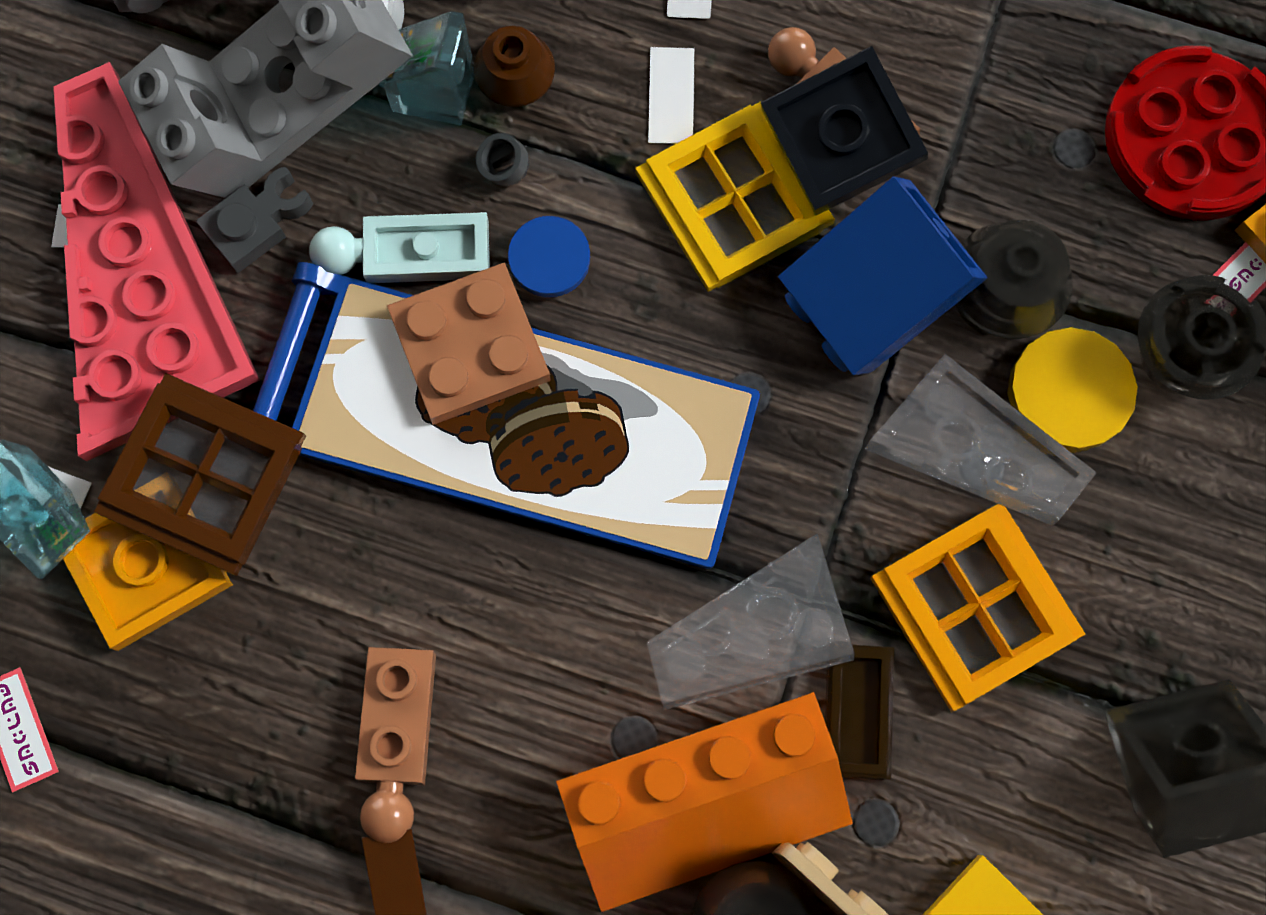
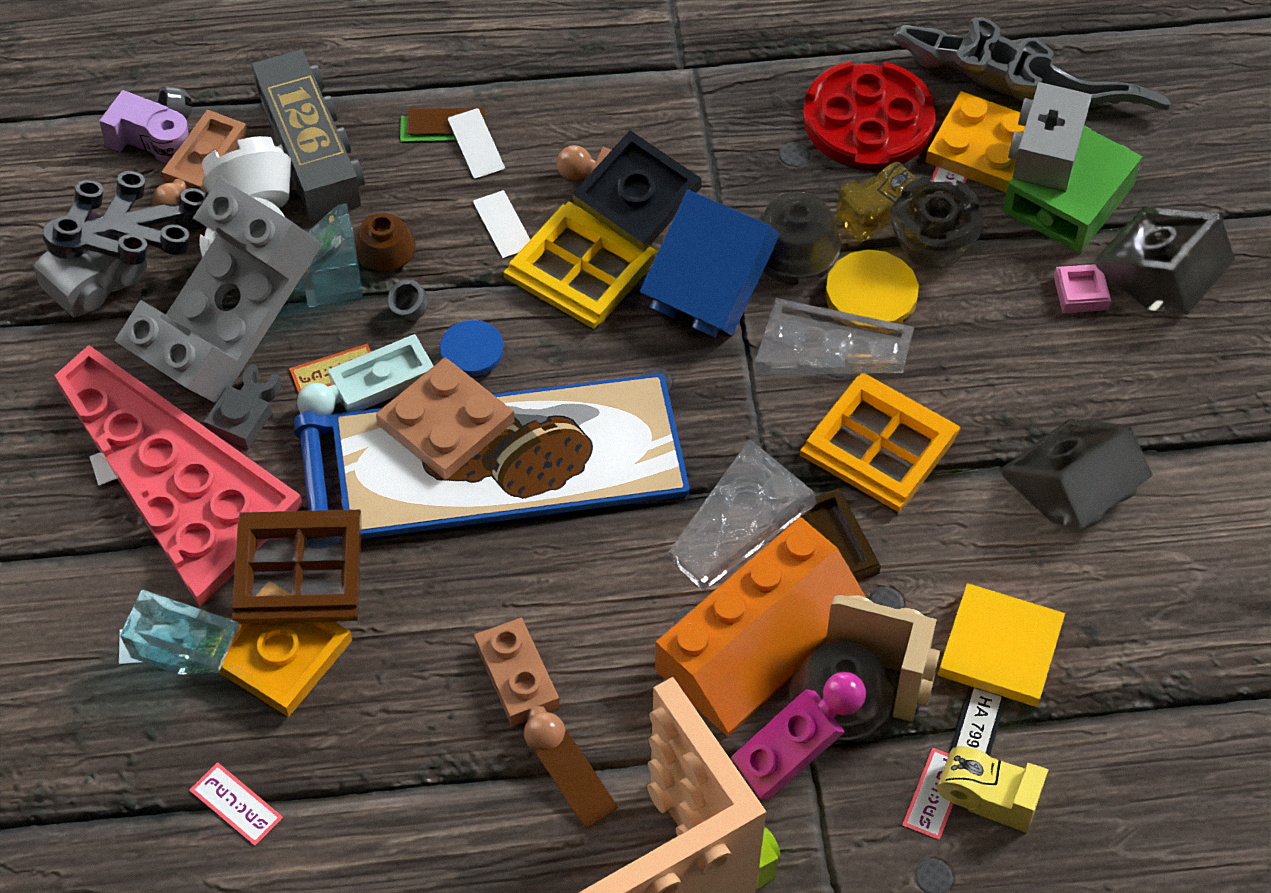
camera: 25 degrees left, 20 degrees down
(351, 204) = (317, 370): none -> clear yellow sticker
(1142, 265) = (871, 200): none -> clear yellow leg

